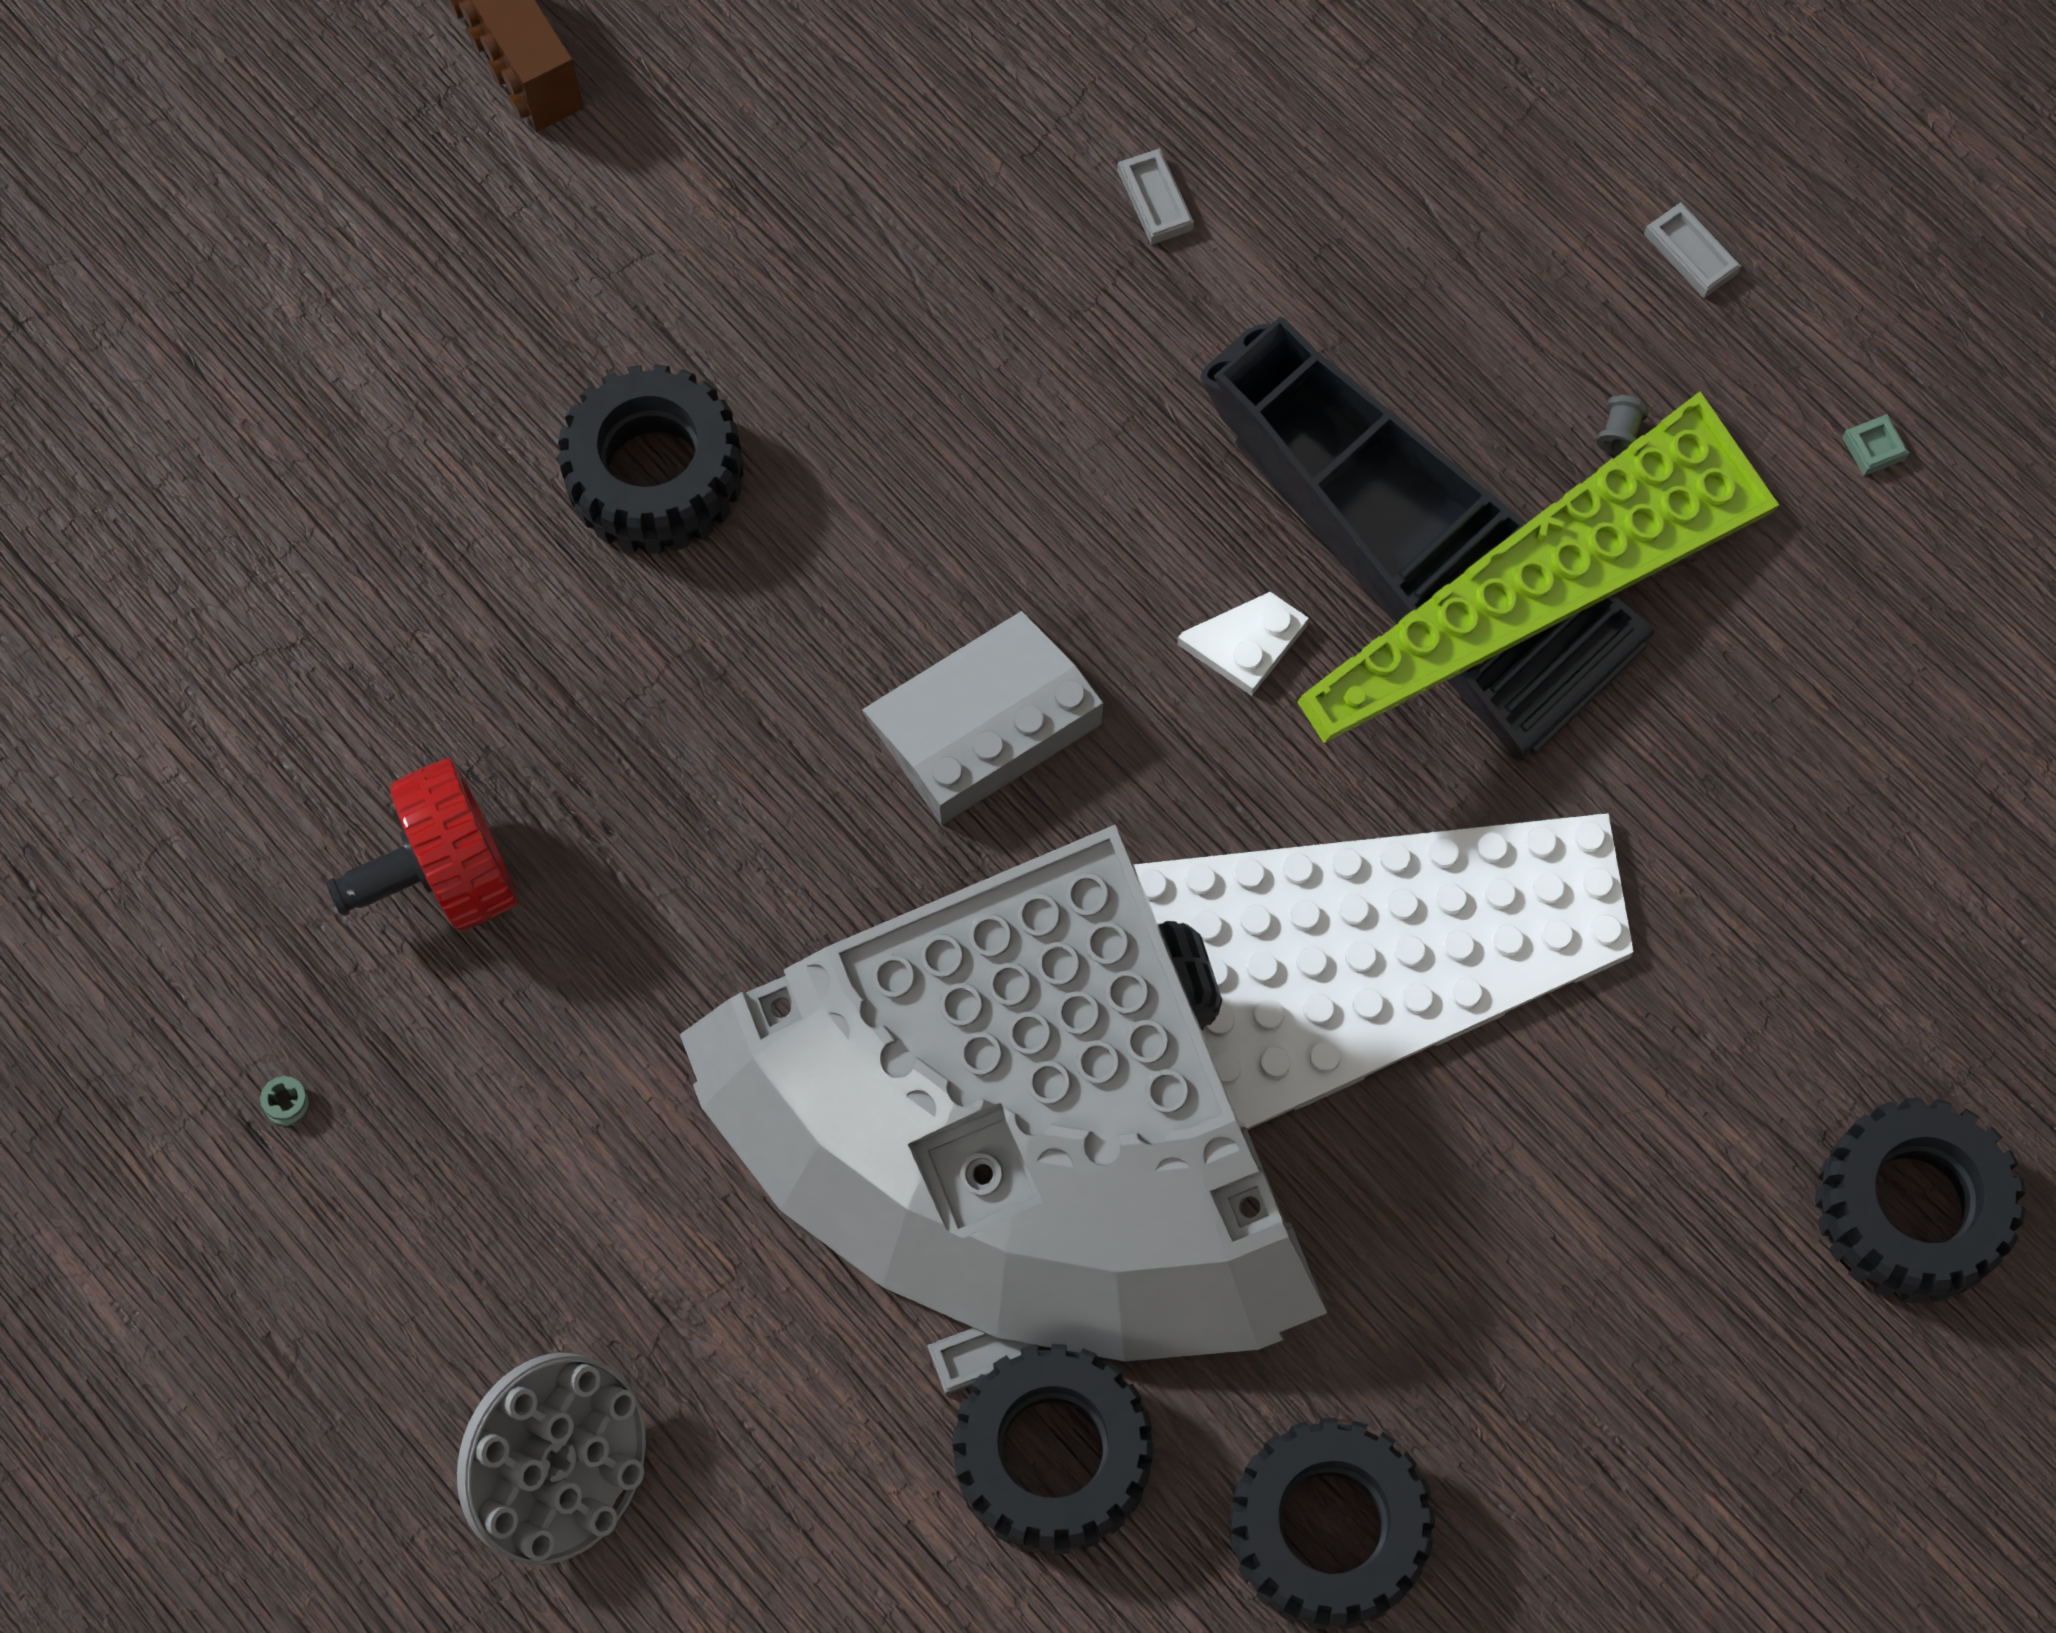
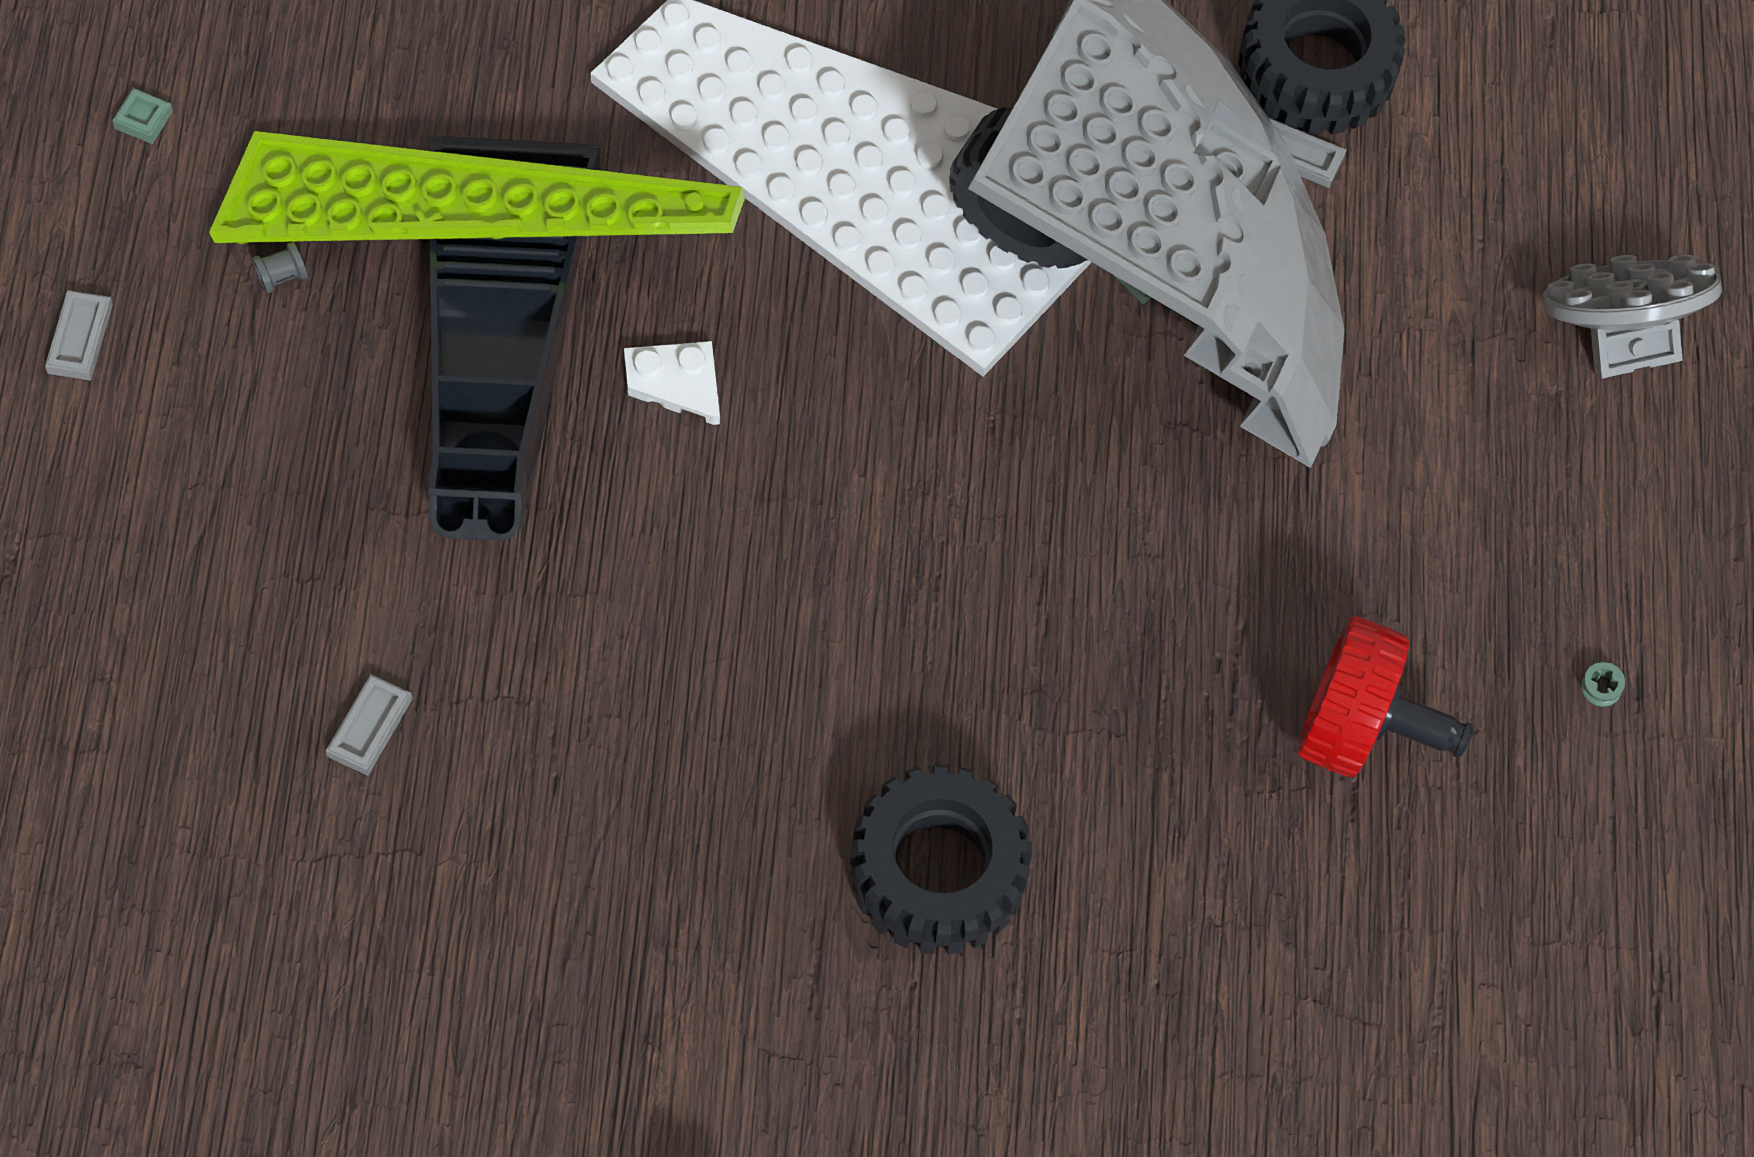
camera: 140 degrees left, 5 degrees down
(985, 715) = (899, 487): light grey slope -> none

